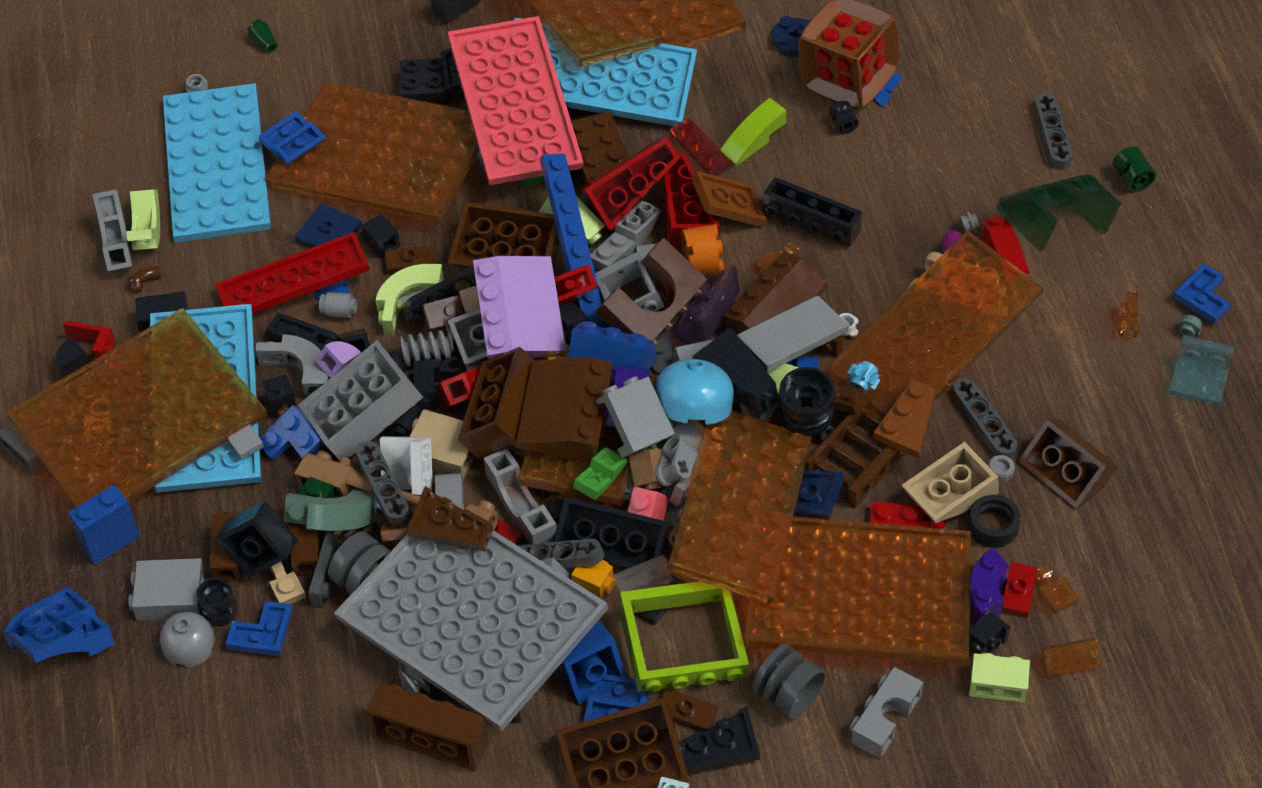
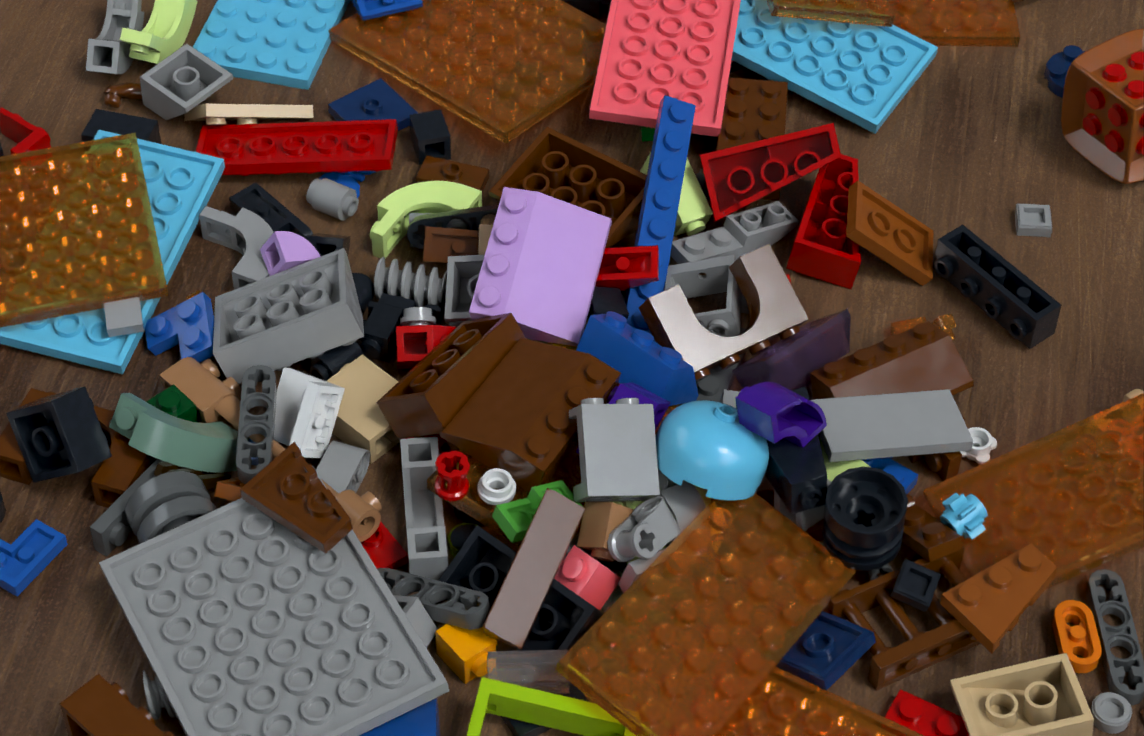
camera: 20 degrees right, 5 degrees down
(187, 257) = (181, 82): none -> light grey slope
(240, 264) = (246, 113): none -> tan wing
(277, 393) = (200, 273): black brick -> none
(286, 586) = (77, 511): tan plate -> none
(447, 371) = (417, 316): none -> light grey plate
(540, 471) = (456, 479): none -> red bush
(567, 461) = (496, 479): none -> white plate
(619, 511) = (533, 569): none -> slope
(700, 147) = (887, 164): clear red plate -> none
(703, 249) = (824, 281): orange brick -> none
(729, 353) = (779, 413): none -> dark purple brick
(754, 131) = (966, 167): lime slope -> none
(812, 154) = (1033, 220): none -> light grey tile
(843, 117) = (1095, 187): black wheel -> none
(853, 432) = (915, 585): none -> black tile
(964, 429) = (1079, 639): none -> orange plate

